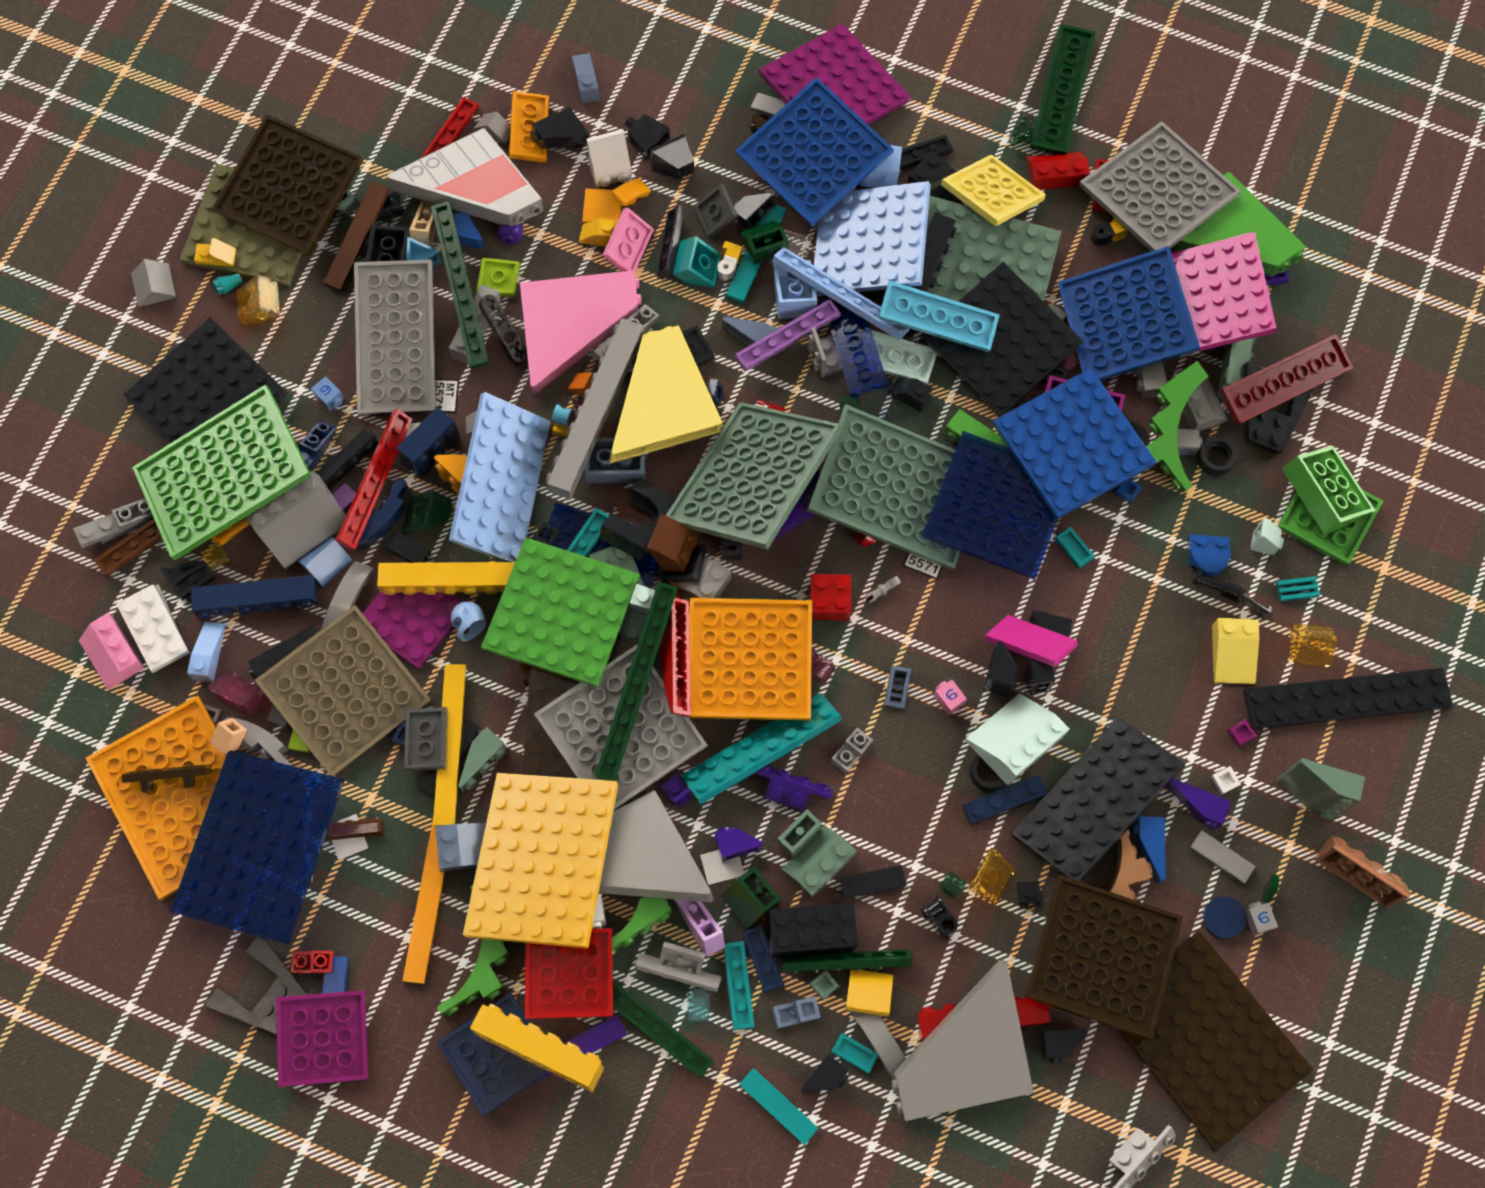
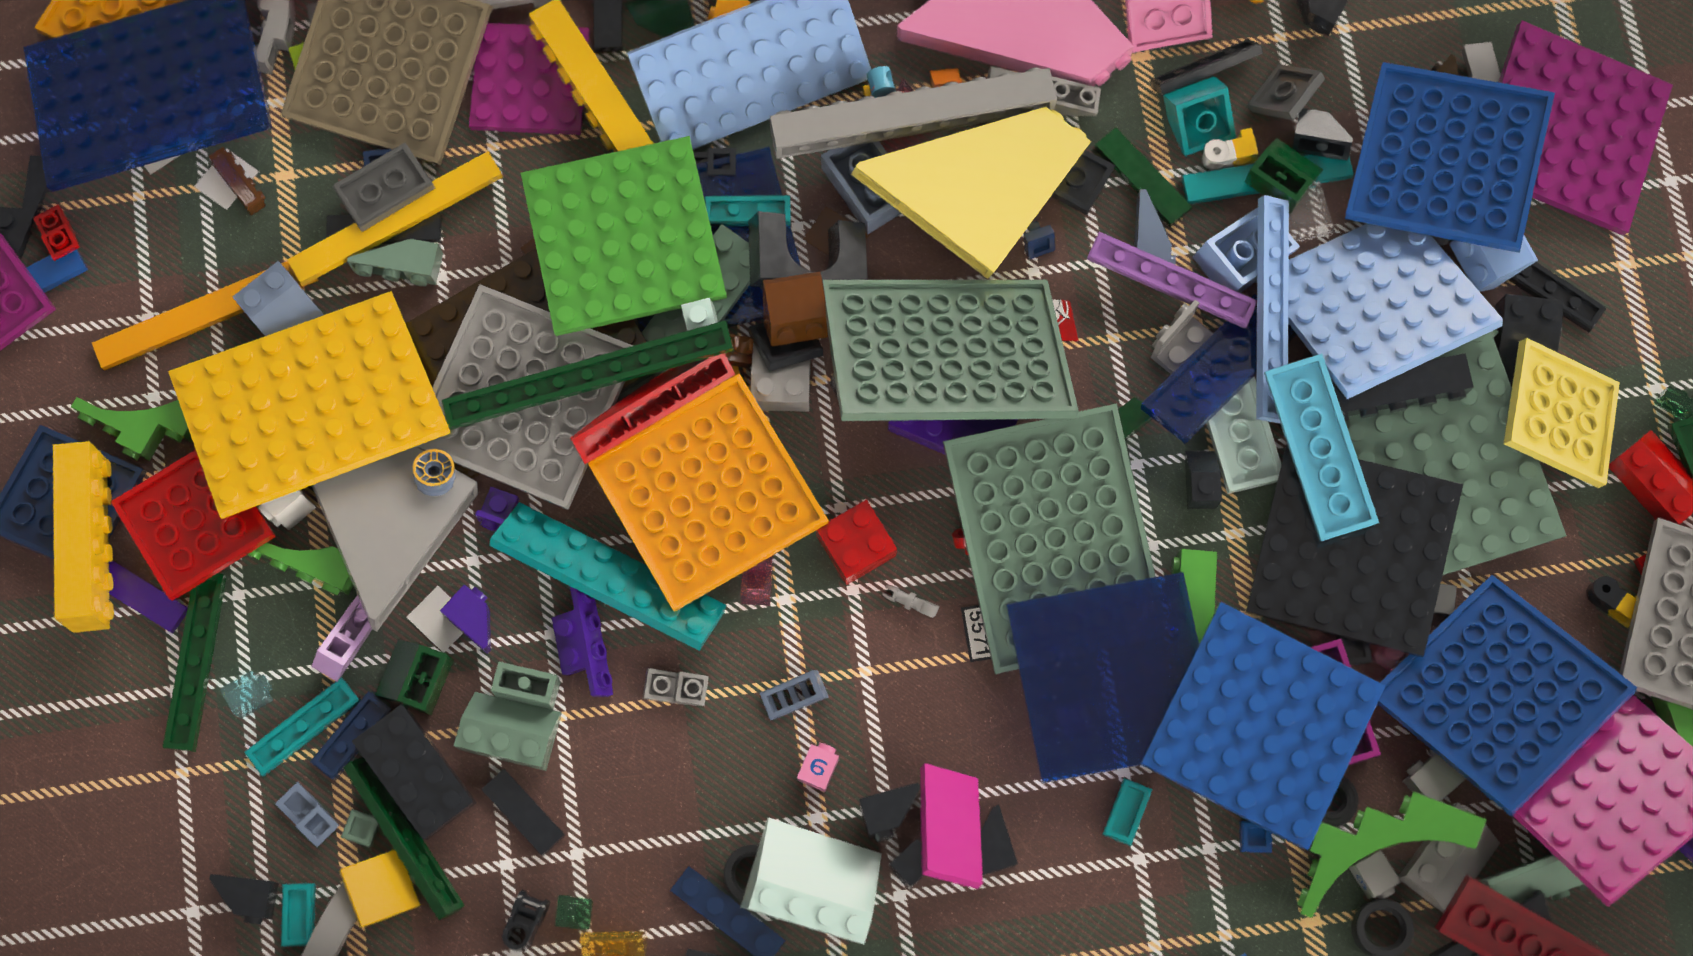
camera: 60 degrees right, 5 degrees up
(469, 616) = (560, 134): light blue helmet -> none
(630, 803) = (442, 464): none -> sand blue wheel
(680, 965) = (282, 643): light grey bracket -> none
(711, 315) = (1143, 175): none -> dark green tile
(778, 1106) = (183, 861): teal tile -> none

